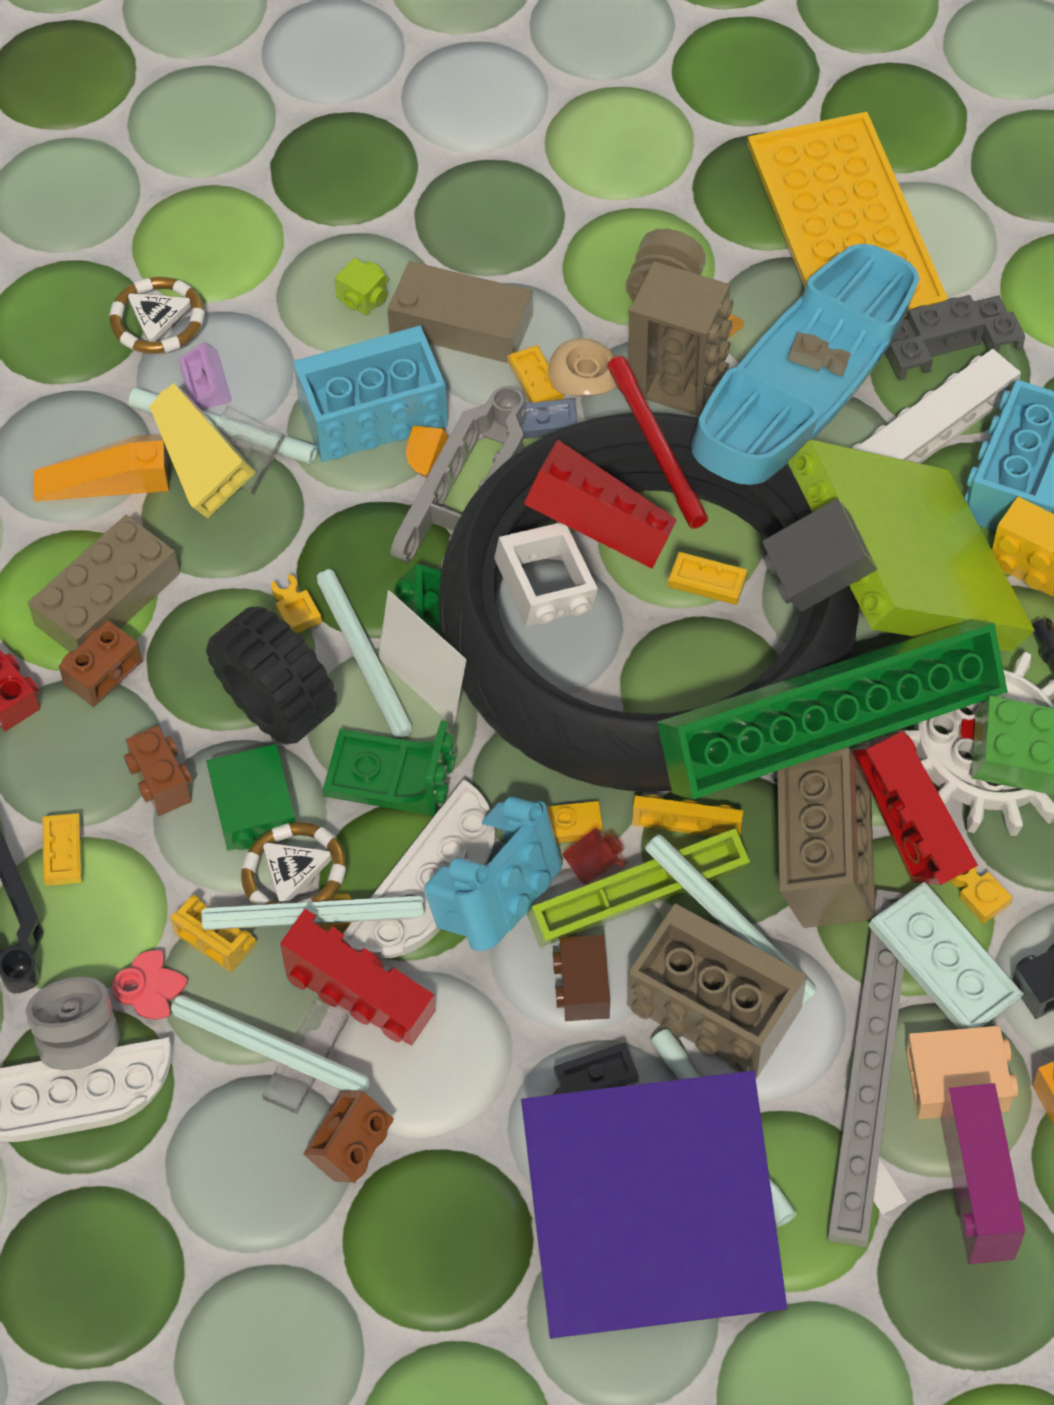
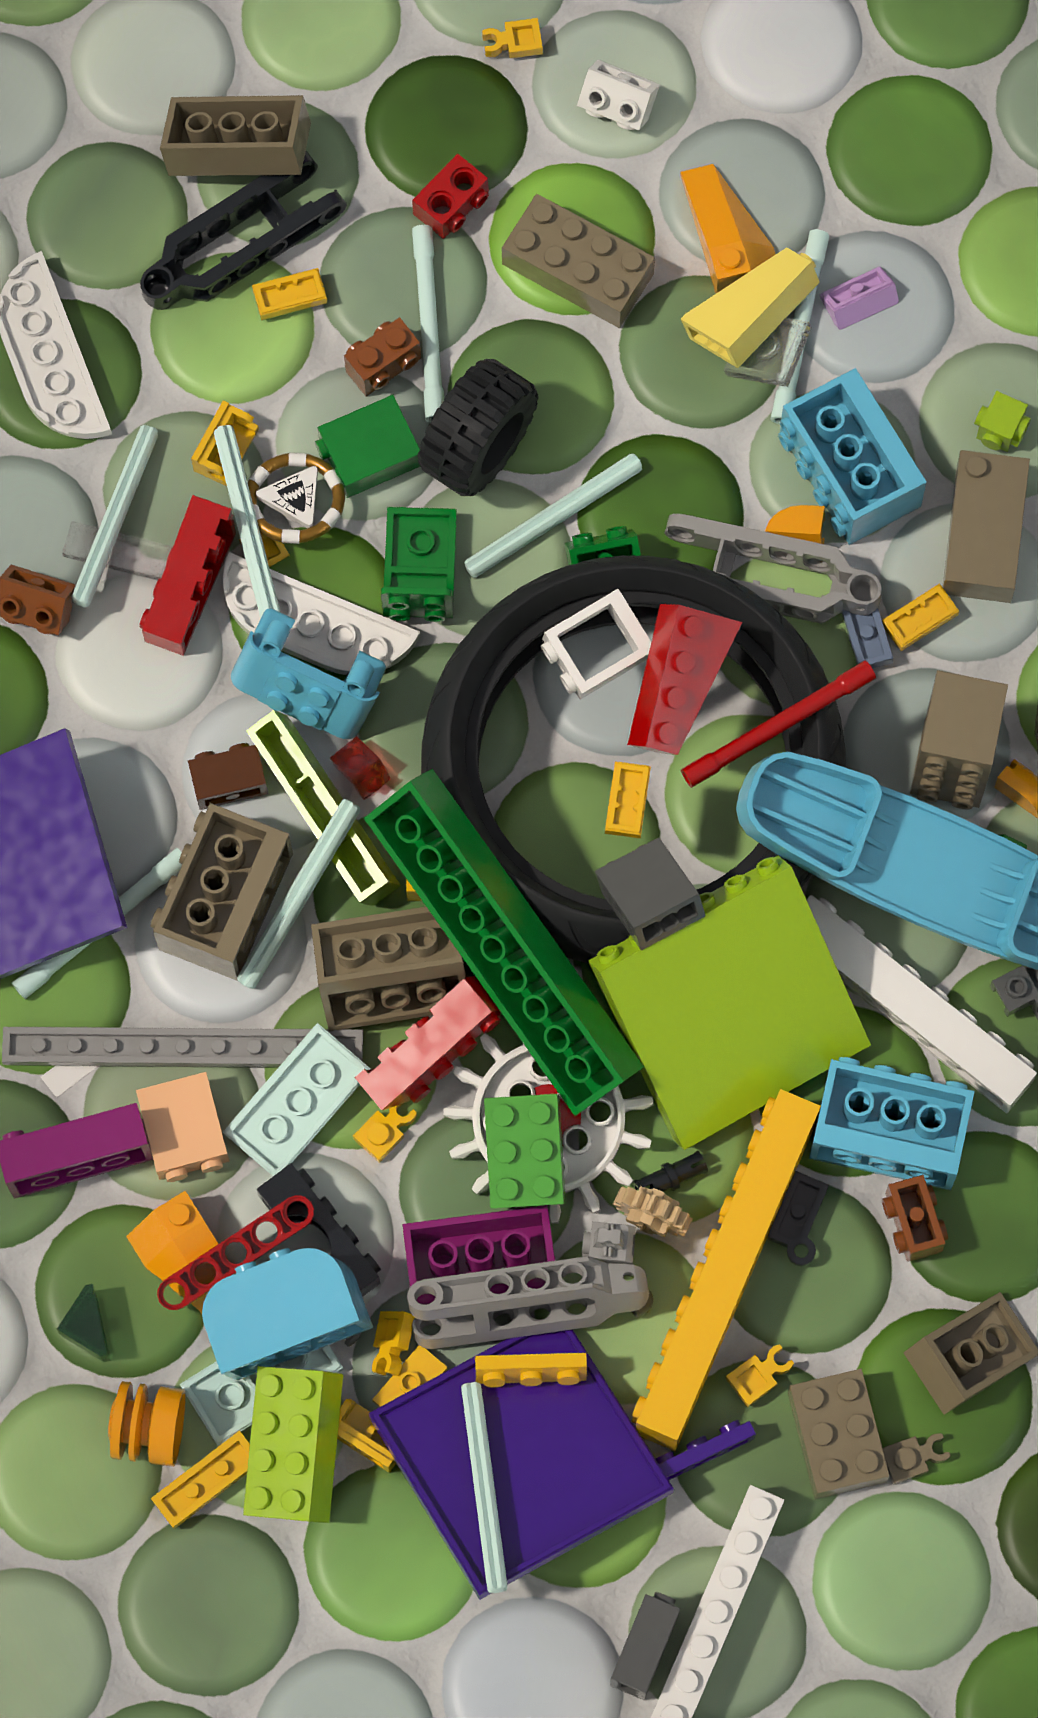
camera: 80 degrees right, 15 degrees up
(54, 723) = (424, 254): none -> light aqua piece
(73, 1023) = (101, 342): light grey wheel -> none
(100, 663) = (489, 276): dark orange brick -> none
(154, 985) = (165, 407): coral plate -> none
(157, 314) = (918, 230): piece -> none
(295, 607) = (590, 443): yellow plate -> none
(421, 658) = (532, 559): white sticker -> none
(575, 820) = (394, 735): yellow plate -> none
(581, 368) = (925, 652): tan hat -> none
(597, 1070) = (130, 800): black hinge -> none
(814, 353) = (954, 872): dark tan plate -> none

